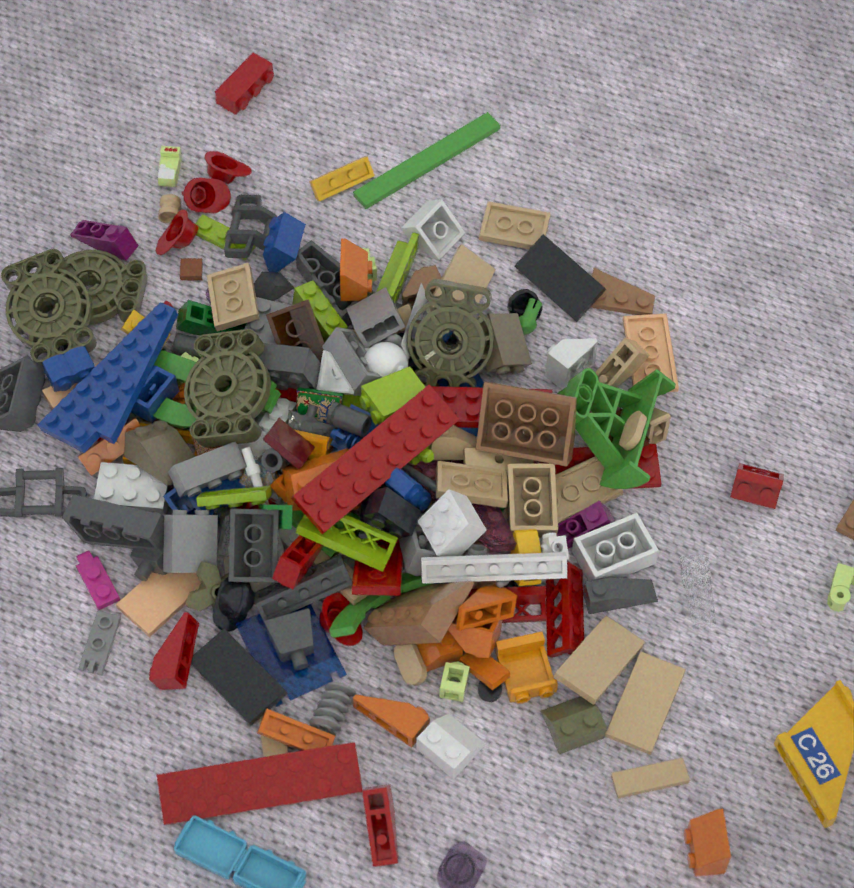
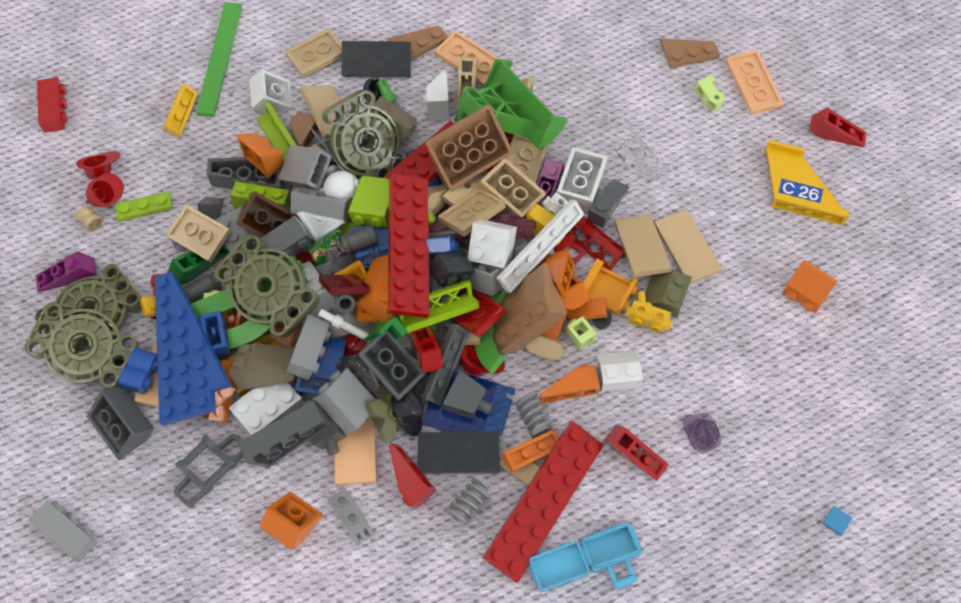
camera: 45 degrees left, 5 degrees up
(51, 597) = (290, 520): none -> orange slope
(96, 580) = (304, 481): dark pink hinge -> none
(169, 166) = (58, 193): yellowish green leg -> none
(178, 234) = (112, 229): red piece -> none
(191, 268) = (145, 243): dark orange tile -> none
(198, 722) = (468, 501): none -> light grey piece
(234, 497) = (344, 347): lime plate -> none
(248, 237) = (167, 188): dark grey bar -> none
(282, 242) = (191, 174): blue slope -> none
(528, 719) = (644, 314): none -> yellow brick
(633, 430) = (525, 101): tan tile -> none
(650, 778) = (736, 284): tan tile -> none
(757, 485) = (609, 78): red bracket -> none

